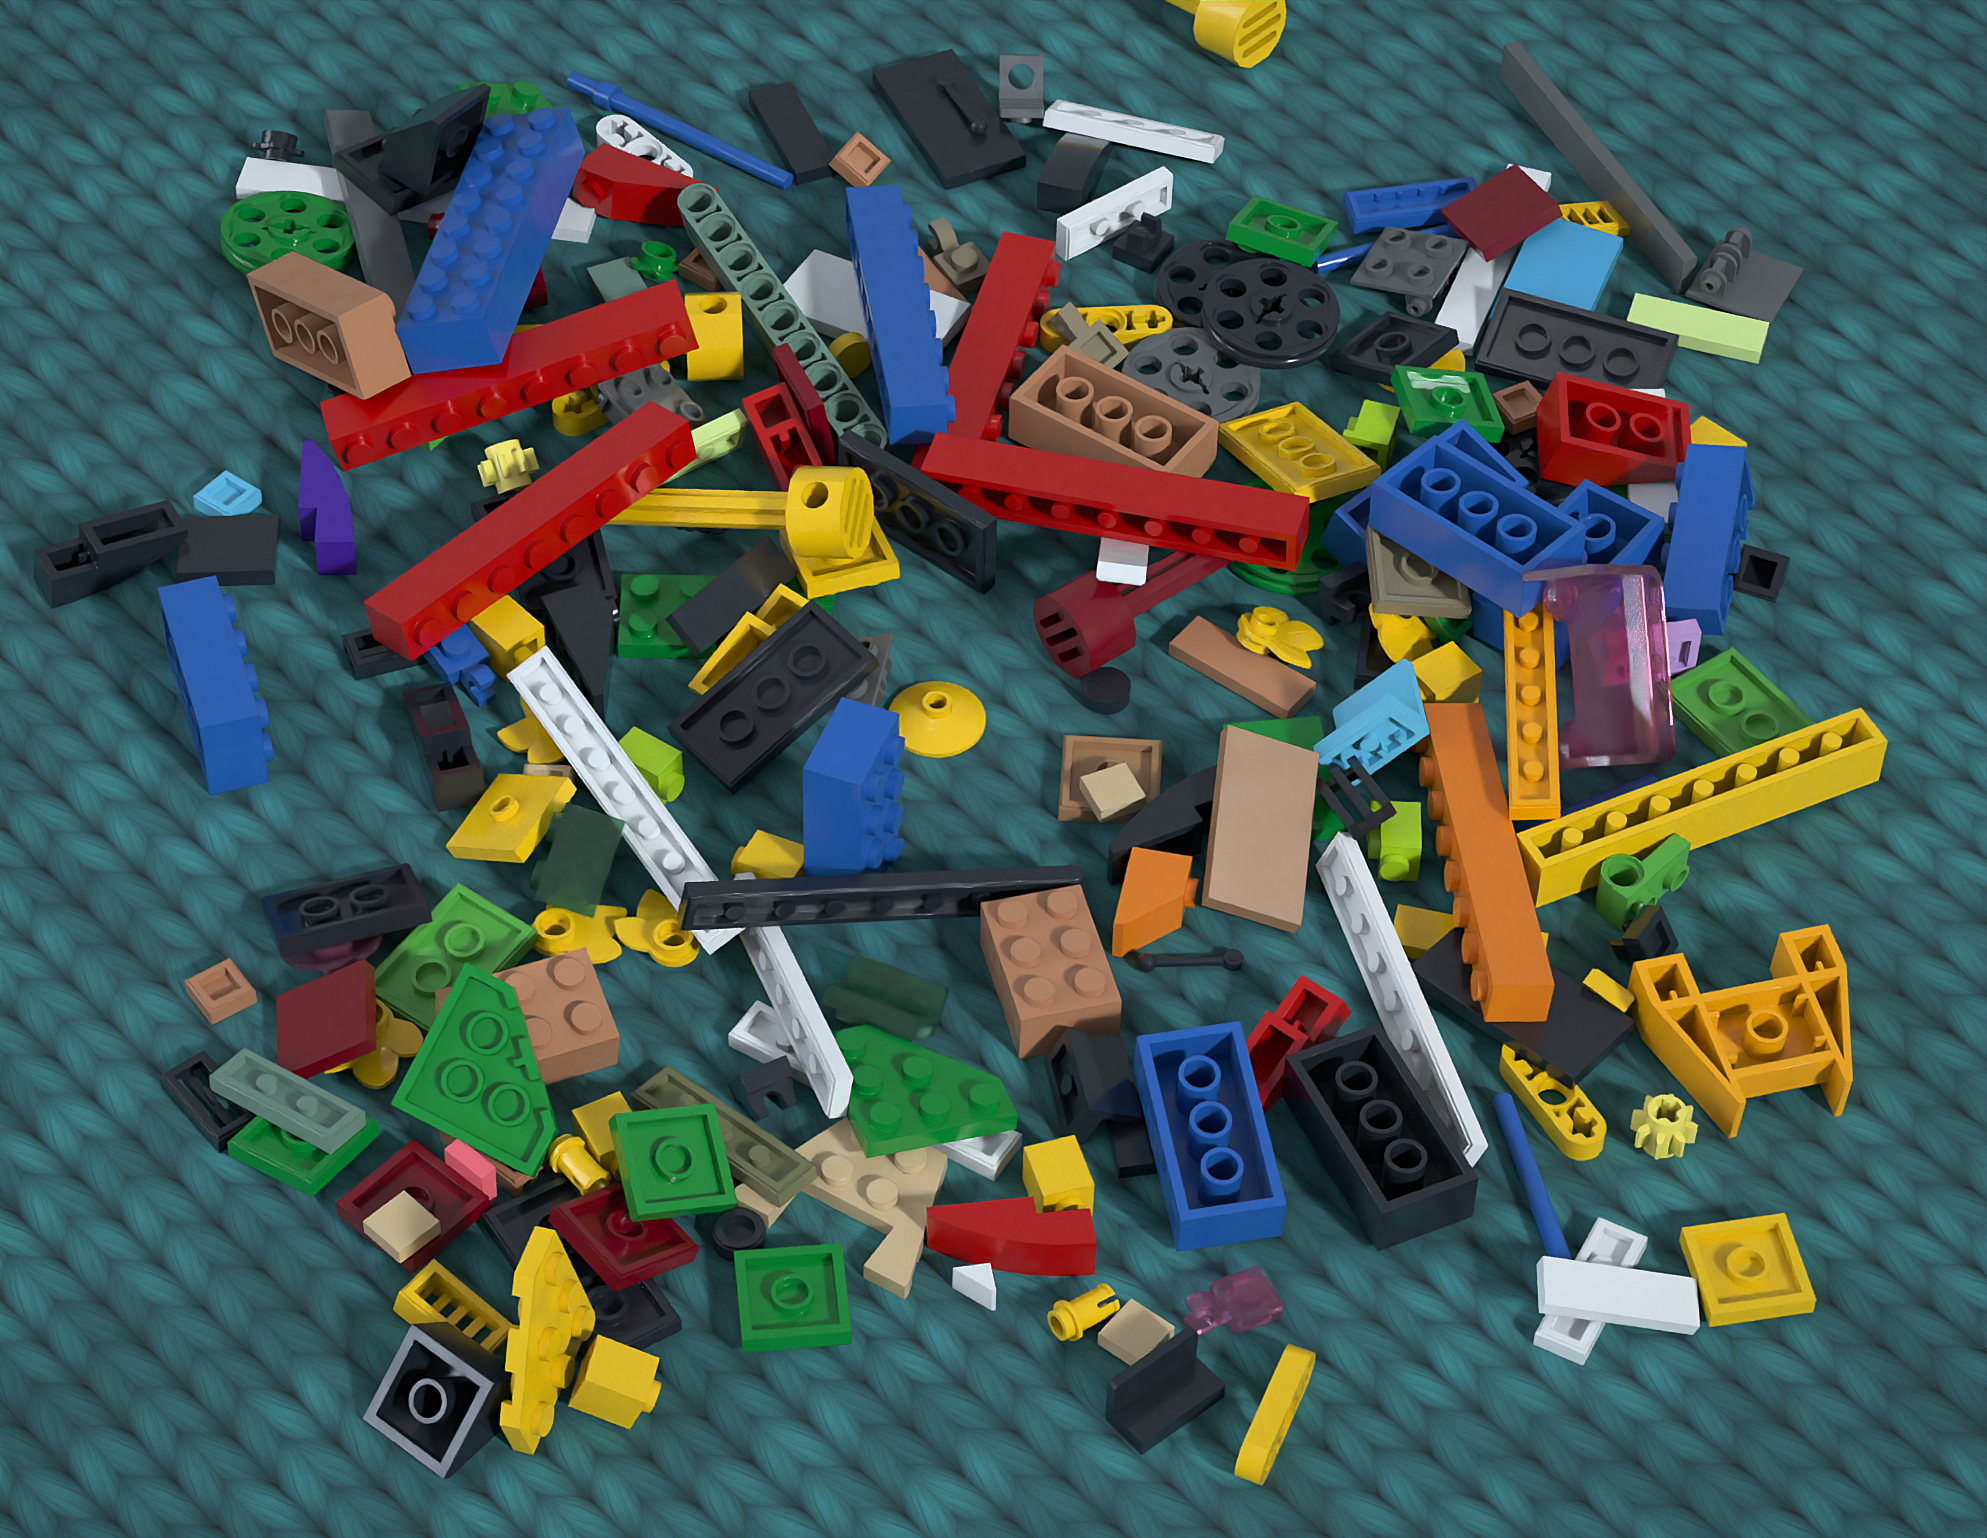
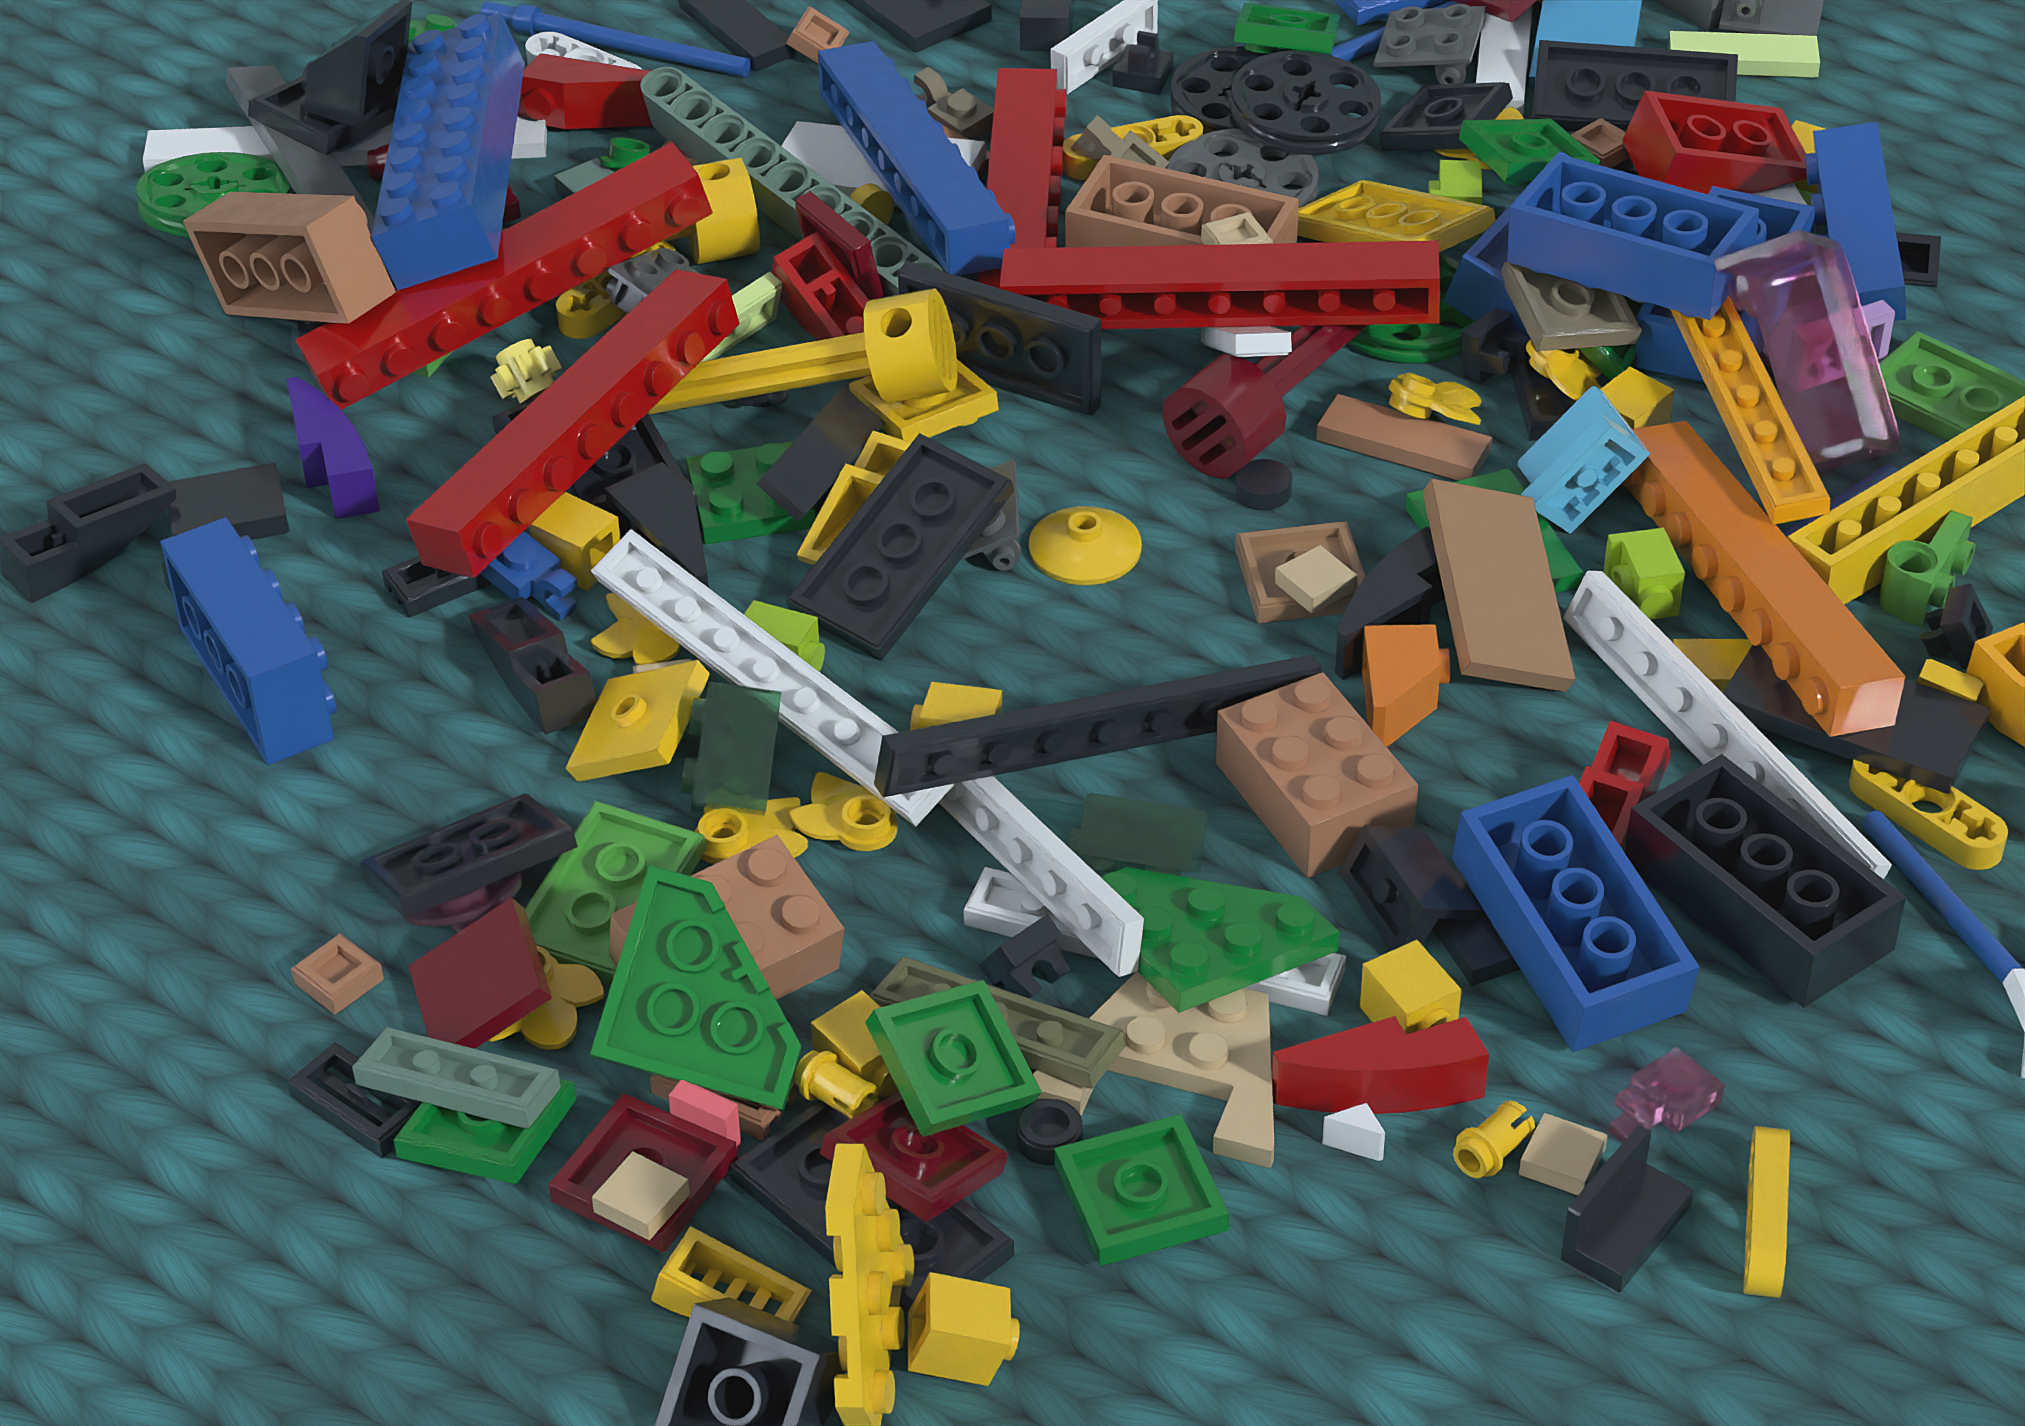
camera: 10 degrees left, 5 degrees down
(227, 496) = (210, 454): medium azure tile -> none
(278, 146) = (181, 112): black plate -> none
(854, 793) = (1046, 604): blue brick -> none
(1147, 451) = (1234, 230): none -> tan tile
(1231, 960) = (1508, 731): black hinge -> none
(1343, 781) = (1600, 527): black tile -> none

